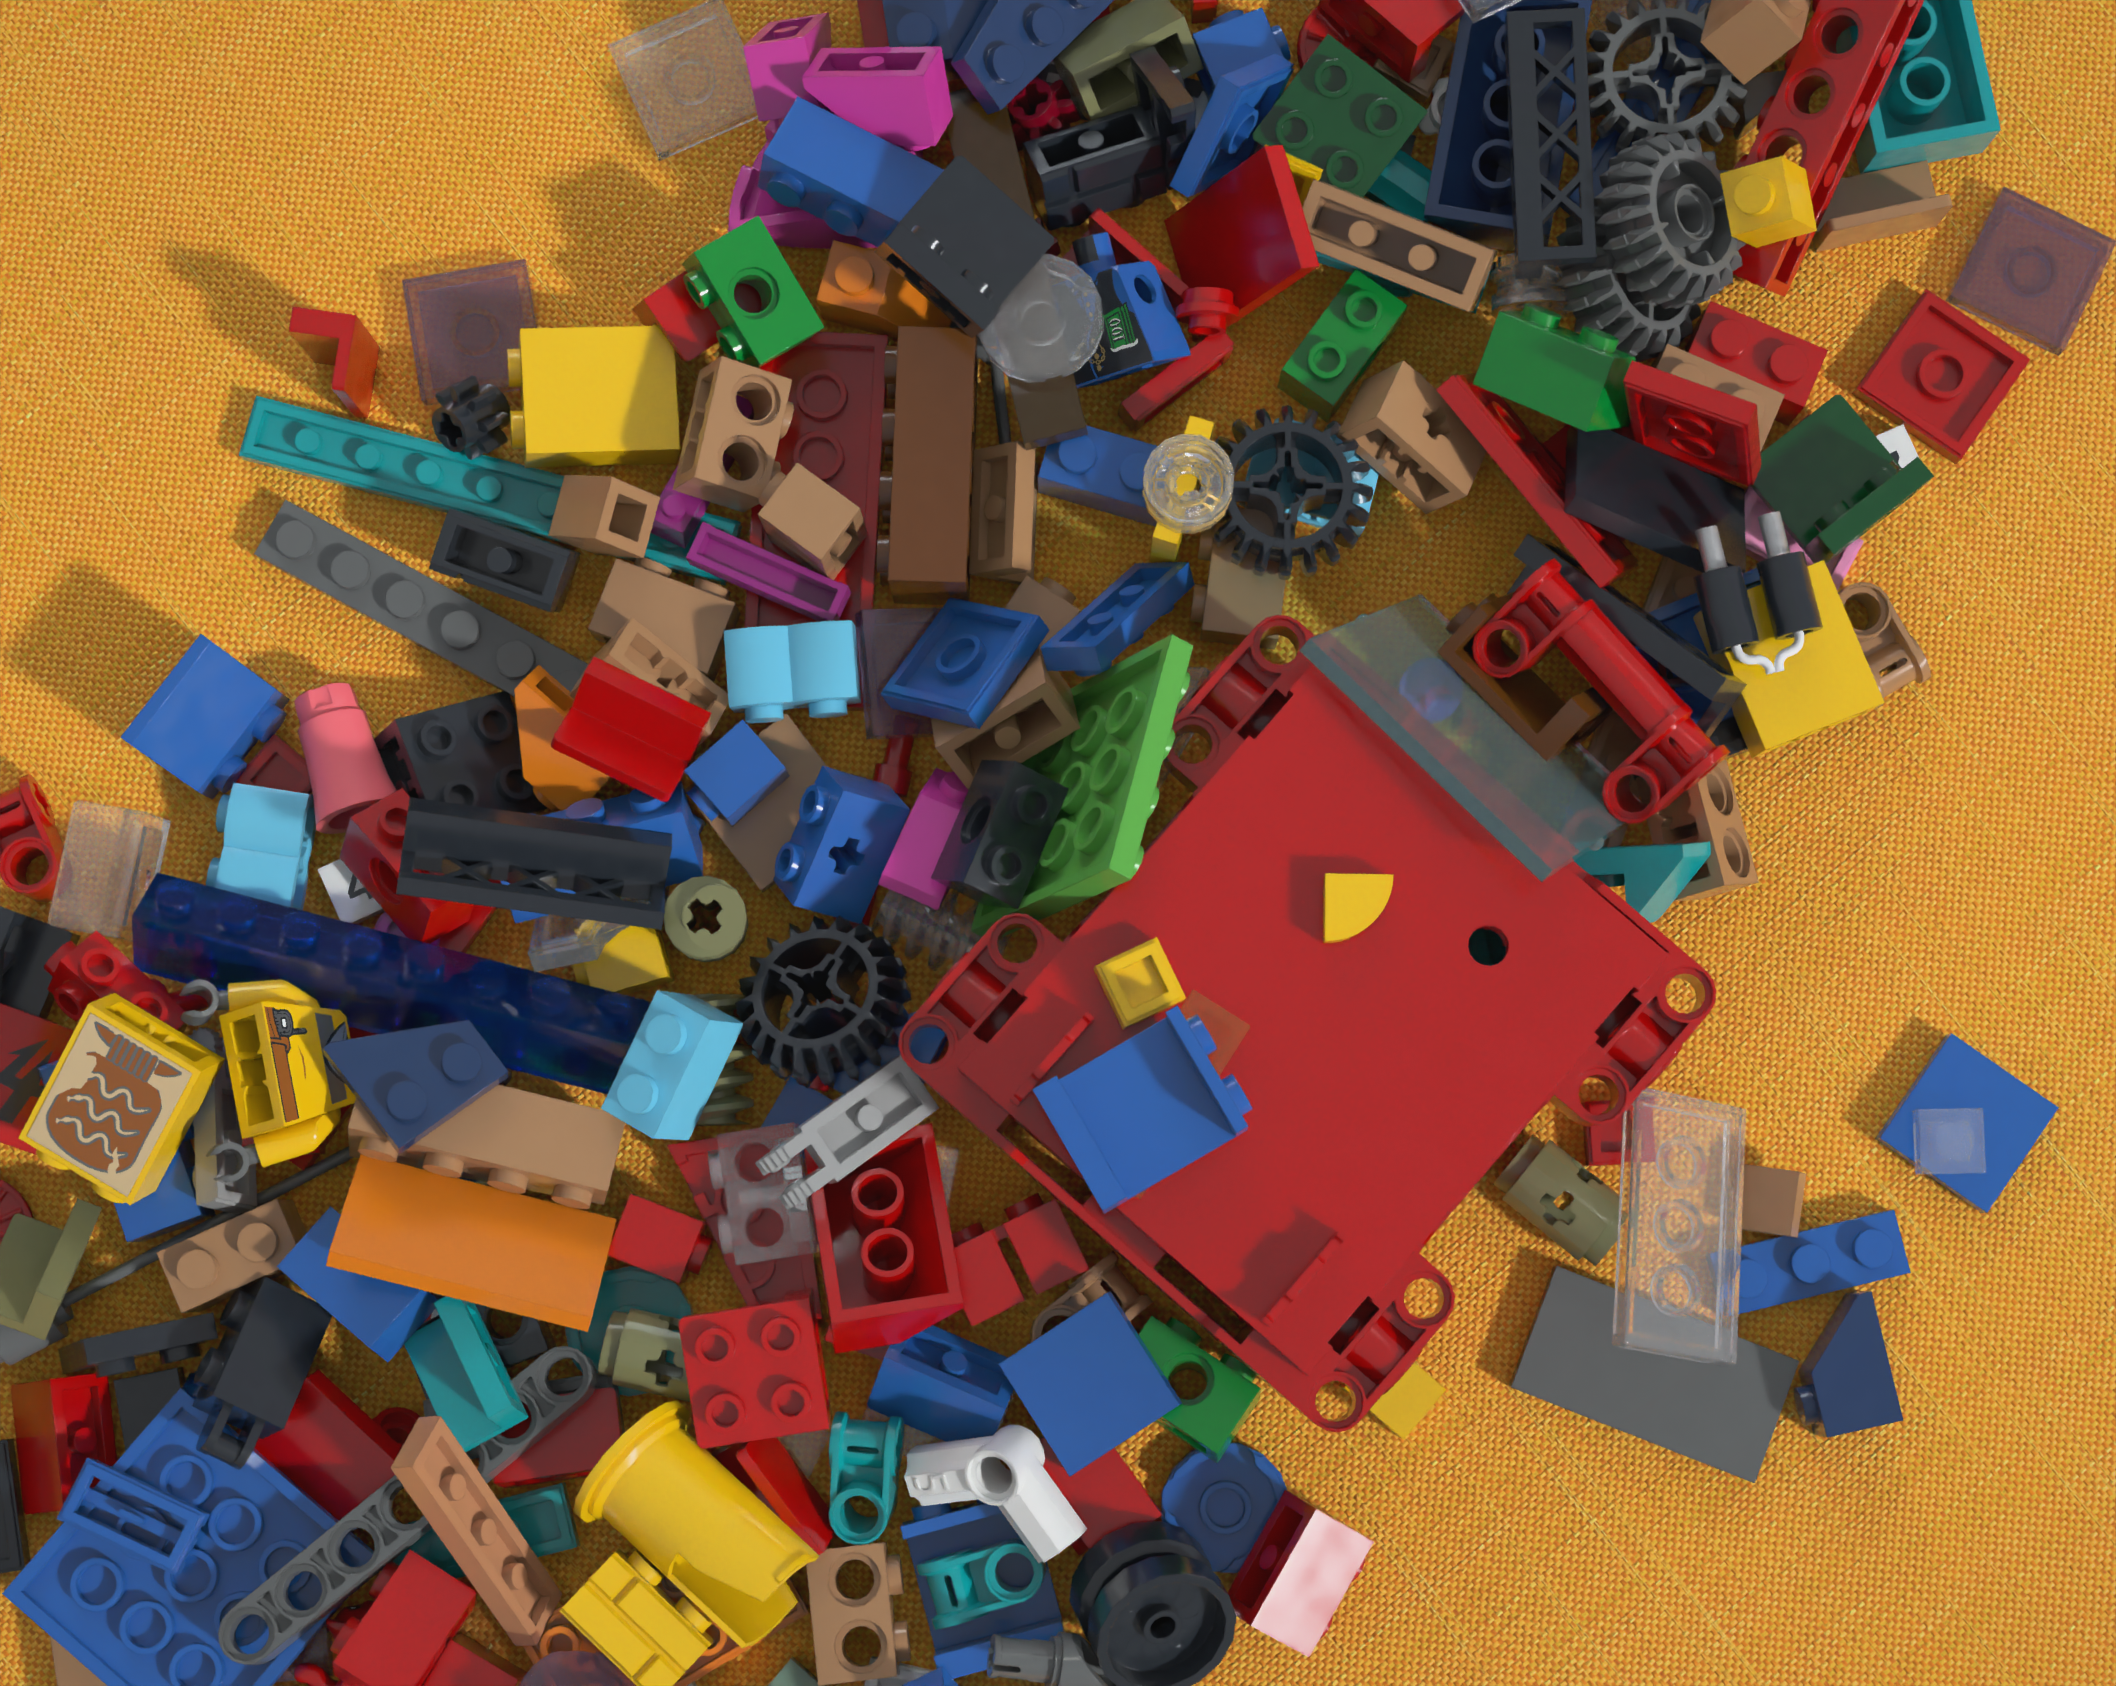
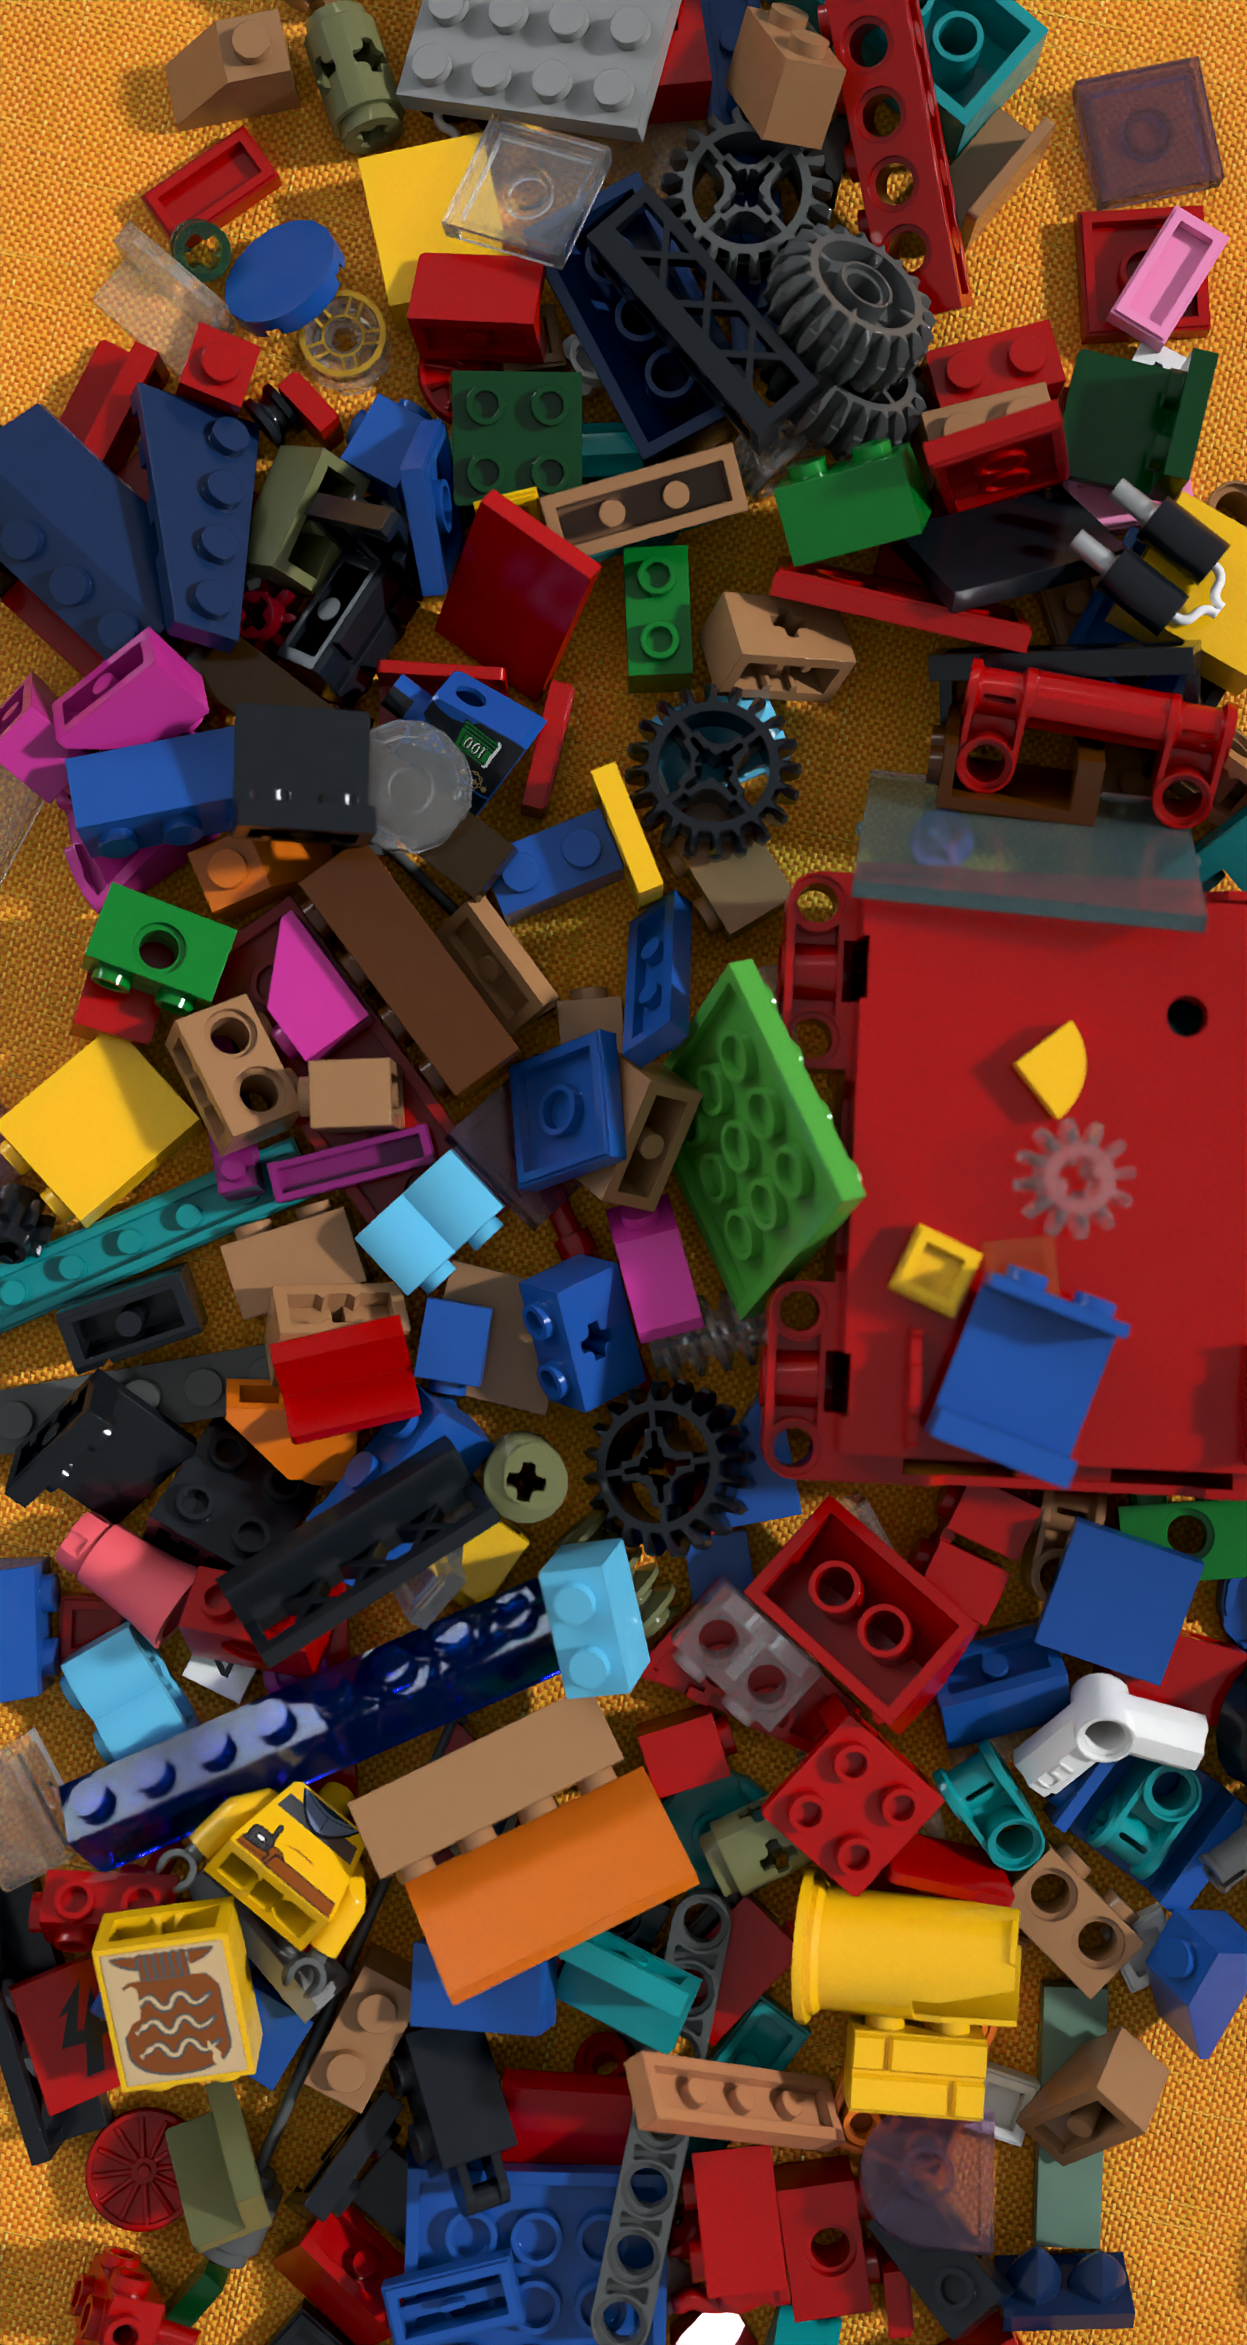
camera: 40 degrees left, 5 degrees up
(398, 643) = (100, 1450): none -> black bracket
(416, 1076) = (401, 1794): dark blue wing -> none
(604, 516) = (183, 1220): medium nougat brick -> none
(840, 422) = (311, 996): none -> dark pink slope
(853, 1128) = (775, 1558): light grey hinge -> none
(1000, 833) = (709, 1228): black brick -> none
(1194, 509) = (643, 800): clear wheel -> none
(1207, 310) = (532, 674): red plate -> none
(1320, 1002) = (1095, 1169): none -> clear gear
(1768, 202) = (917, 230): yellow brick -> none
(1954, 393) = (1167, 278): none -> bright pink tile

